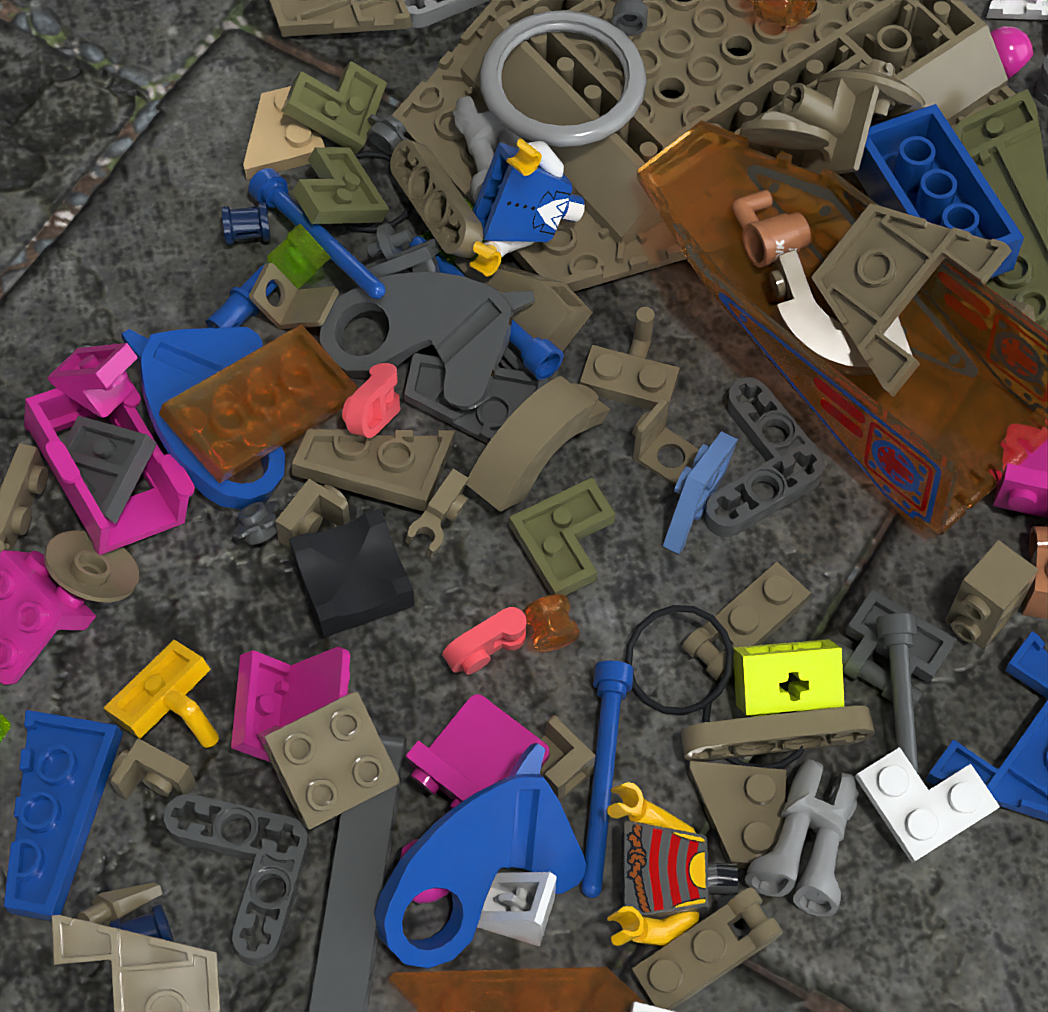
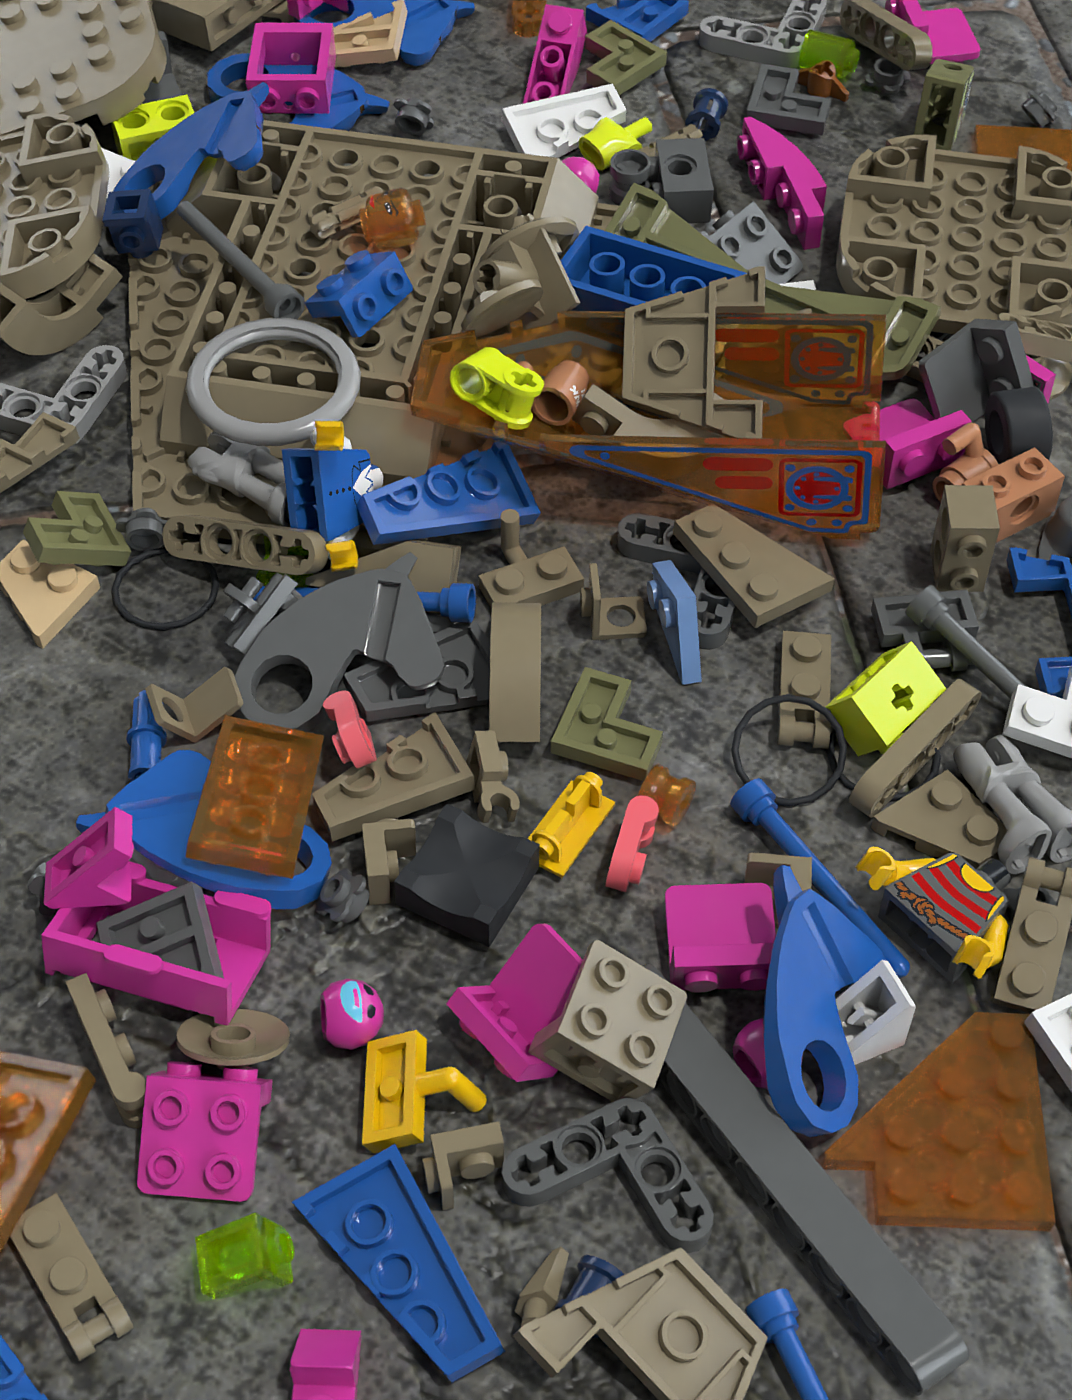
camera: 40 degrees left, 10 degrees down
(179, 610) = (350, 1013): none -> dark pink piece
(246, 223) = (86, 675): dark blue bush -> none
(273, 188) = (80, 637): blue piece -> none
(299, 256) = (167, 661): clear neon green bracket -> none
(341, 192) = (149, 594): olive plate -> none
(462, 591) = (571, 823): none -> yellow hinge
(617, 269) = (450, 499): none -> blue wing
(699, 45) = (362, 291): none -> blue bracket
(717, 200) = (497, 386): none -> neon yellow piece
(799, 490) = (748, 566): none -> dark tan wing

